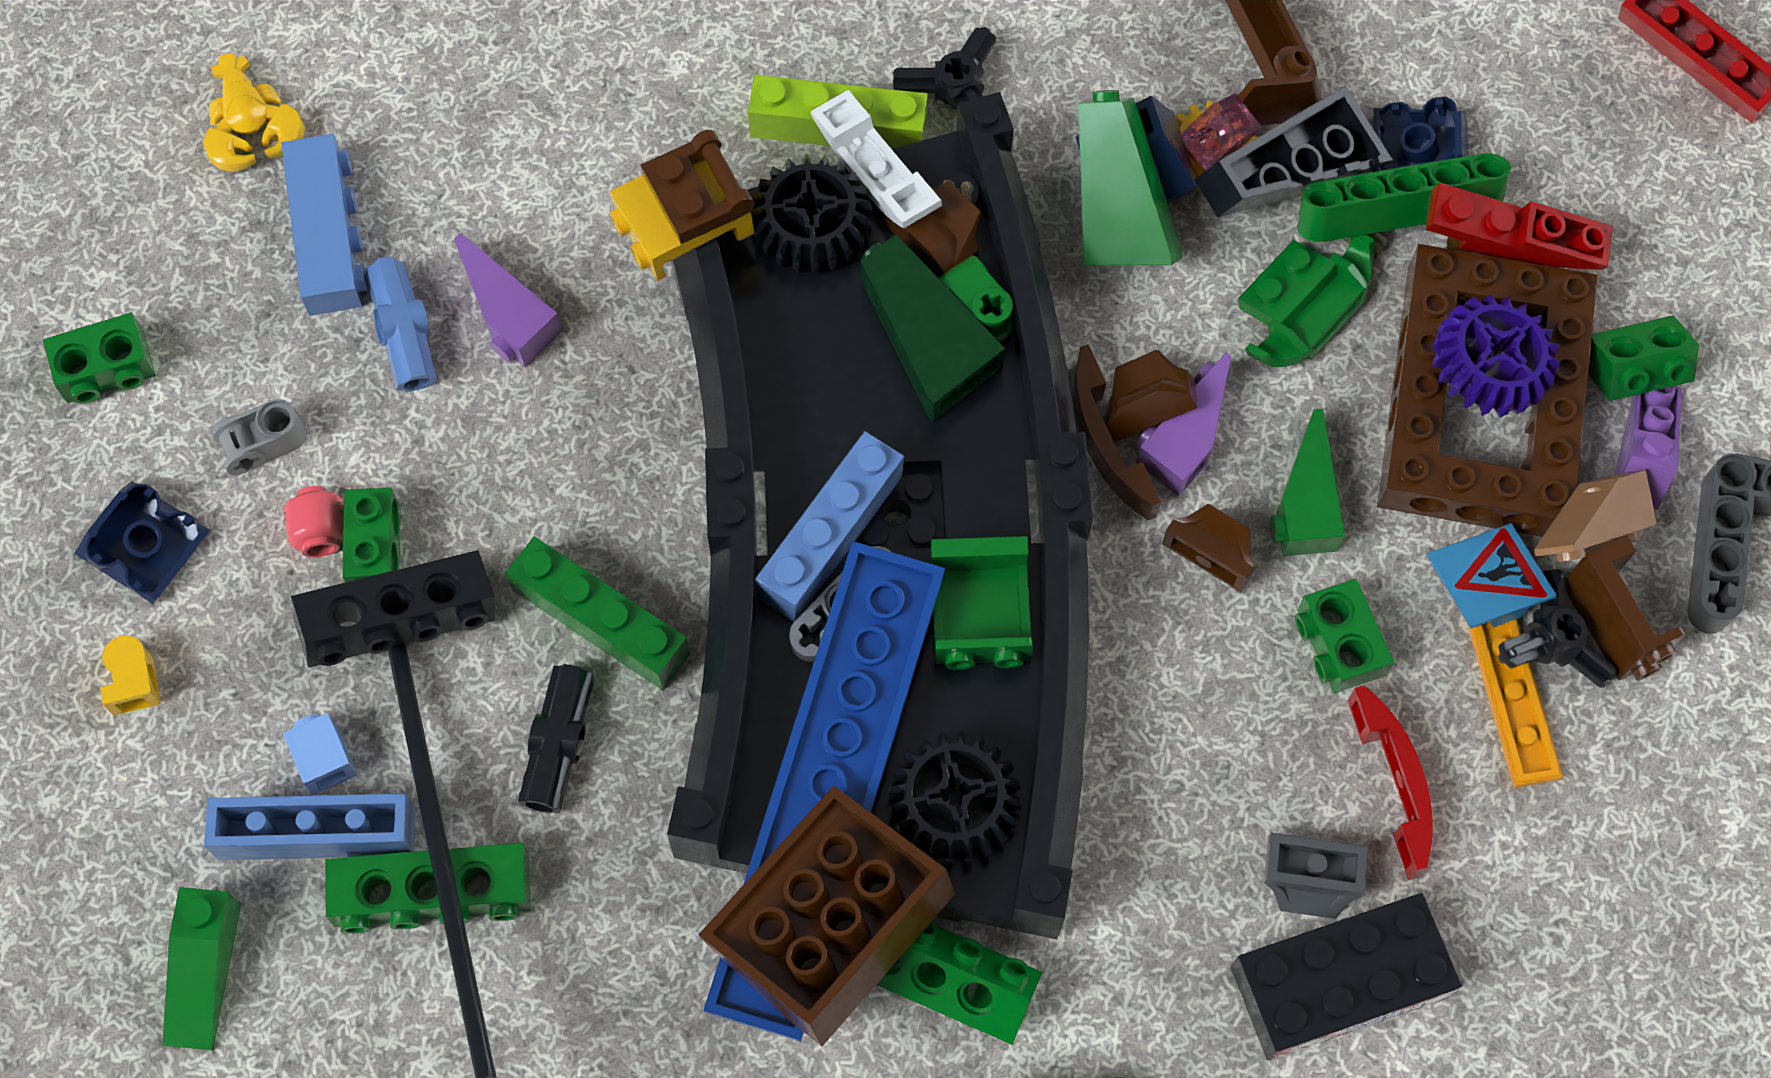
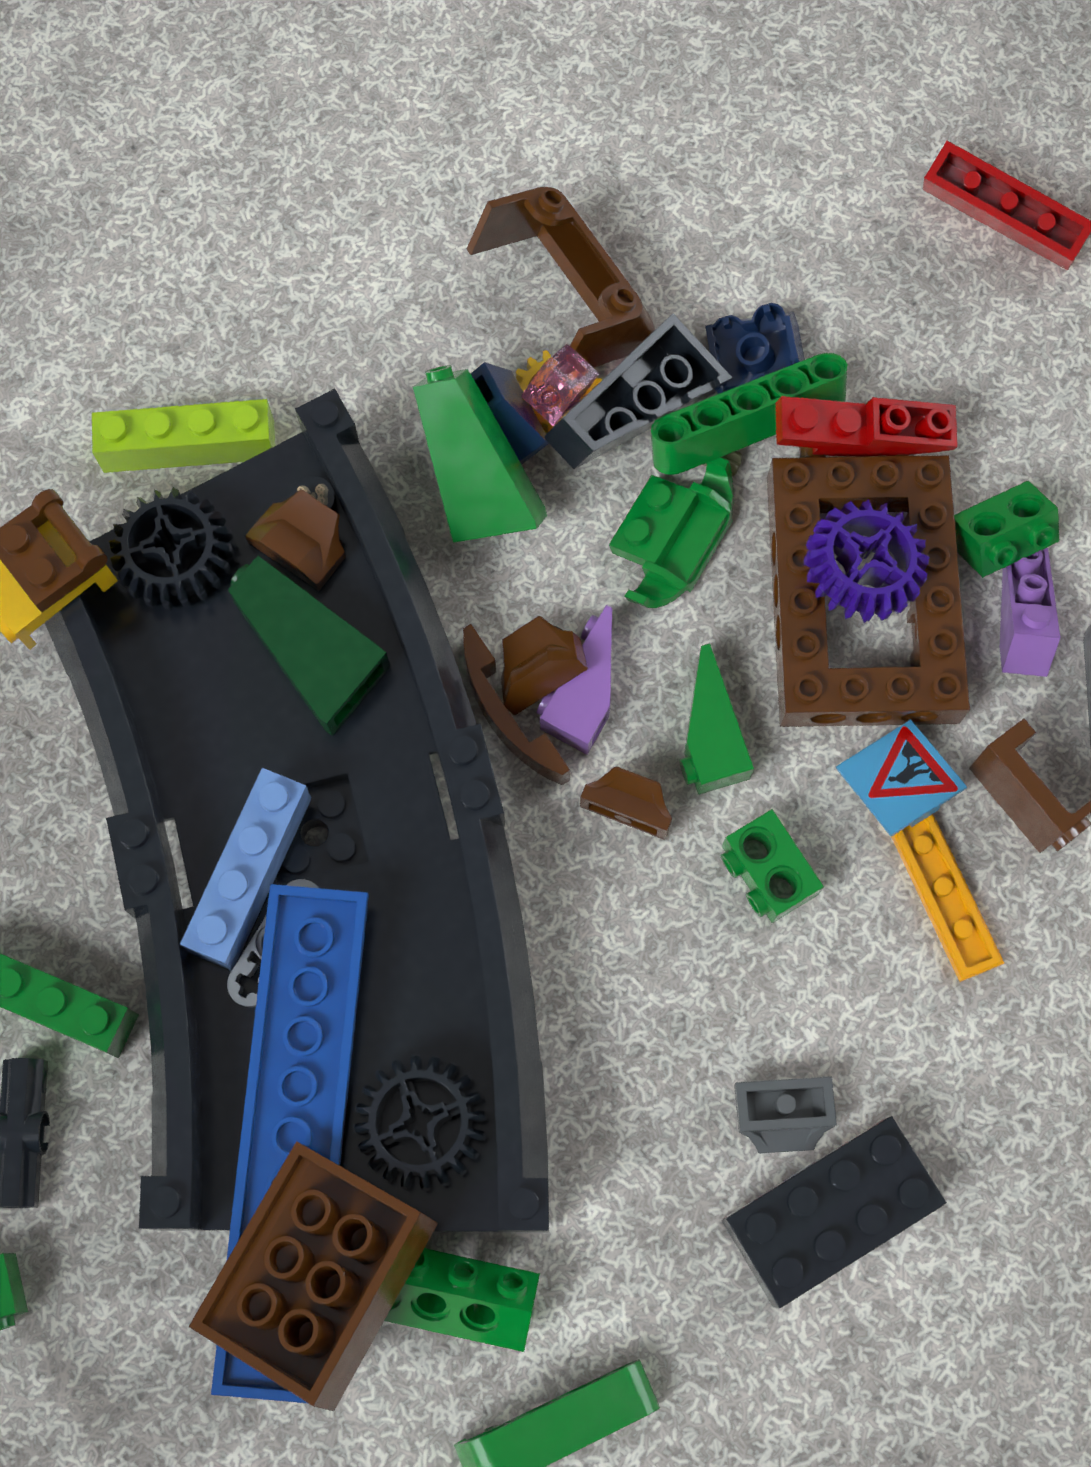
camera: 10 degrees left, 5 degrees up
(862, 150) = (224, 482): white slope -> none
(956, 65) = (278, 379): black bush -> none
(981, 296) = (353, 601): green piece -> none
(982, 602) = (411, 915): green panel -> none
(1375, 723) = (816, 947): red slope -> none
(1558, 637) = (974, 825): black bush -> none
(1598, 515) = (992, 699): medium nougat slope -> none

